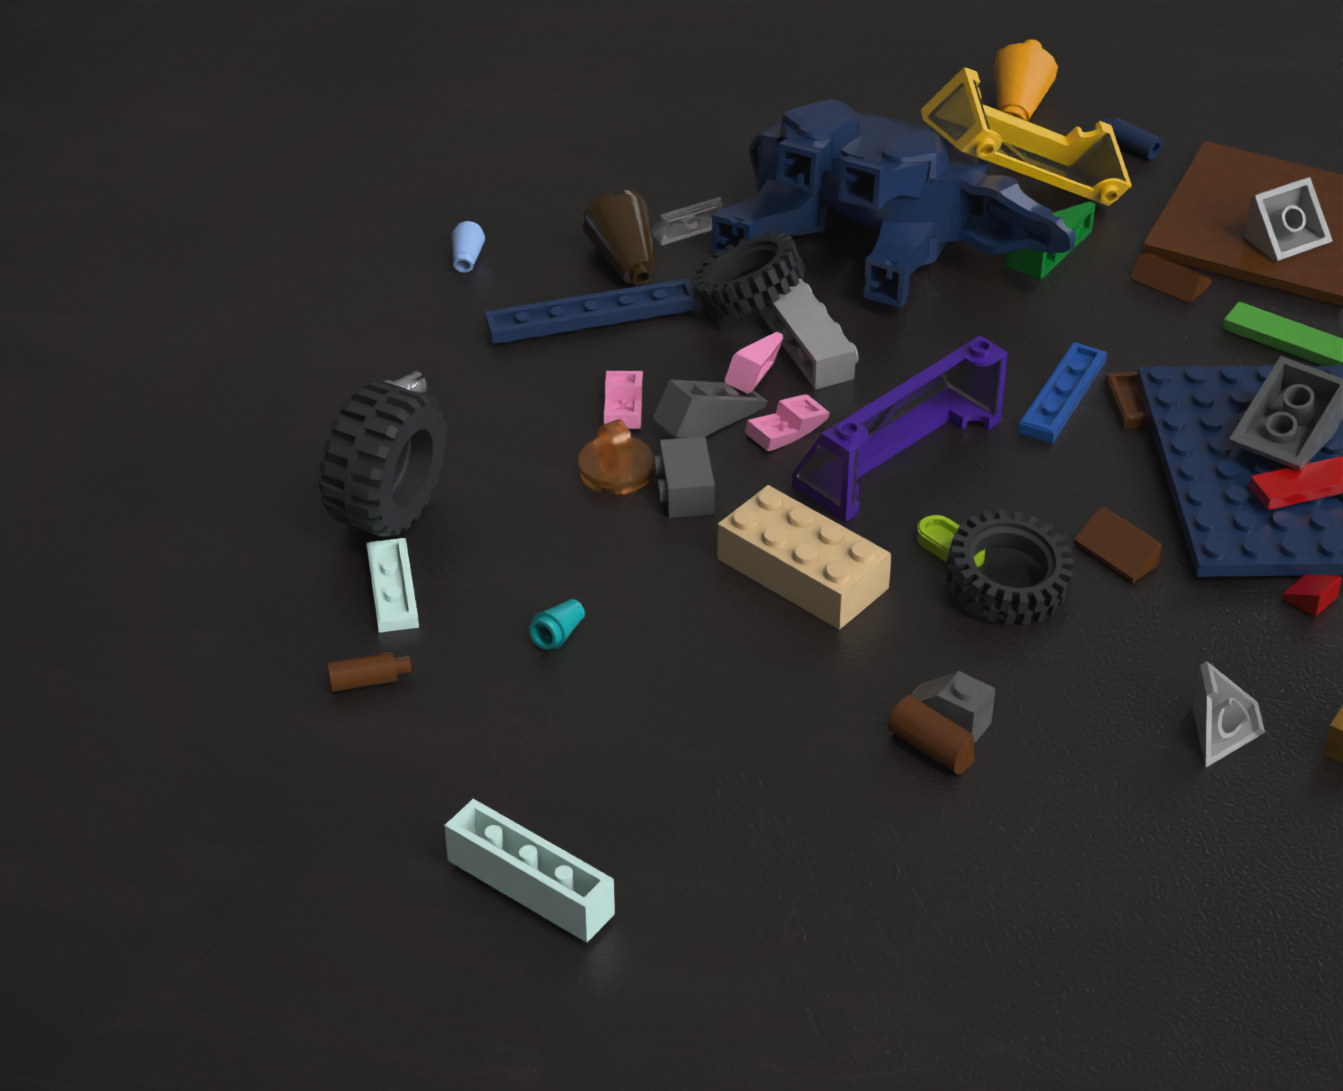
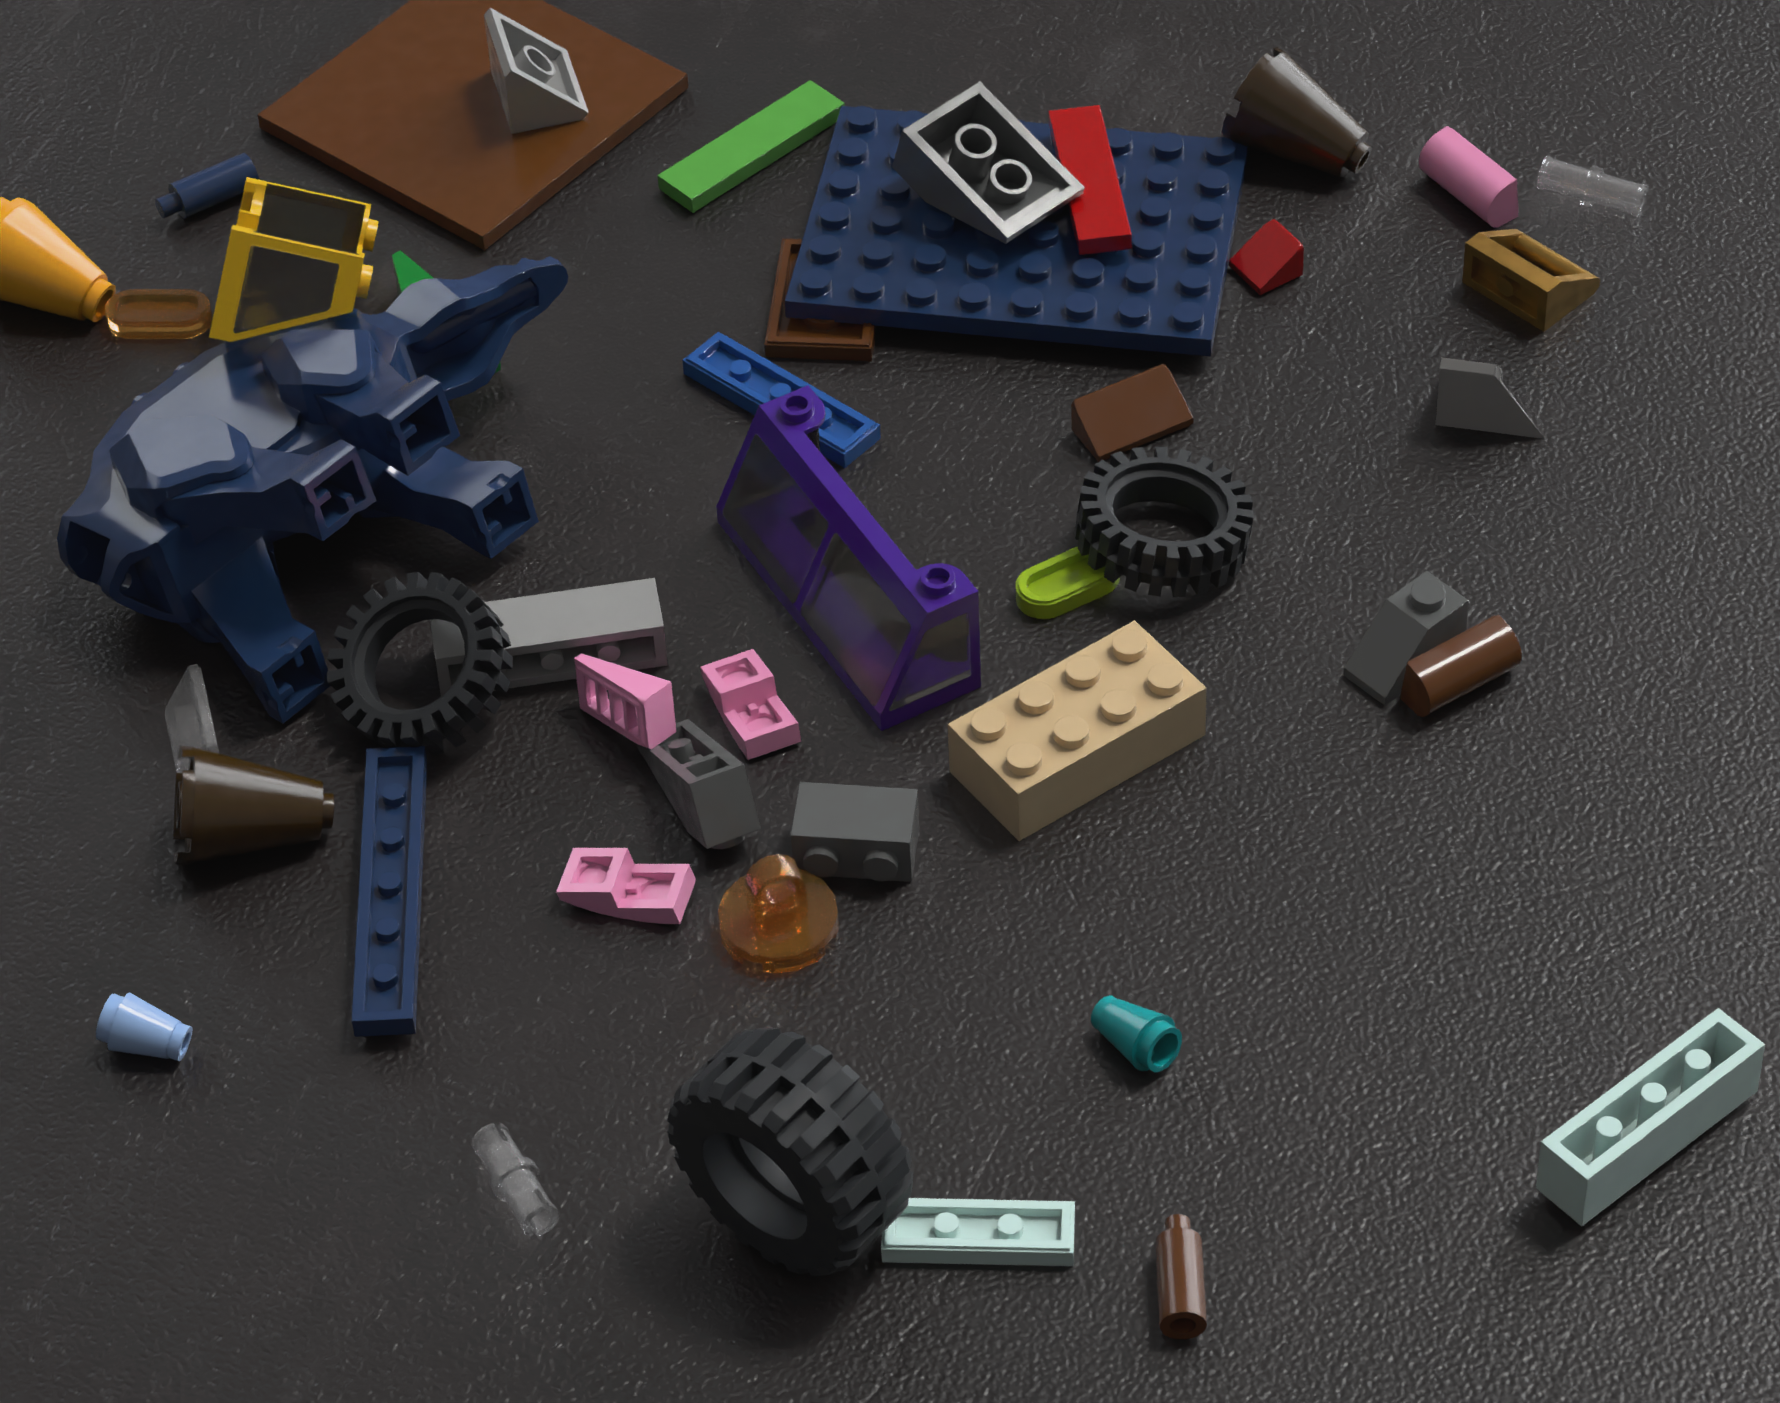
camera: 75 degrees left, 5 degrees up
(1169, 277) = (563, 229): reddish brown slope -> none

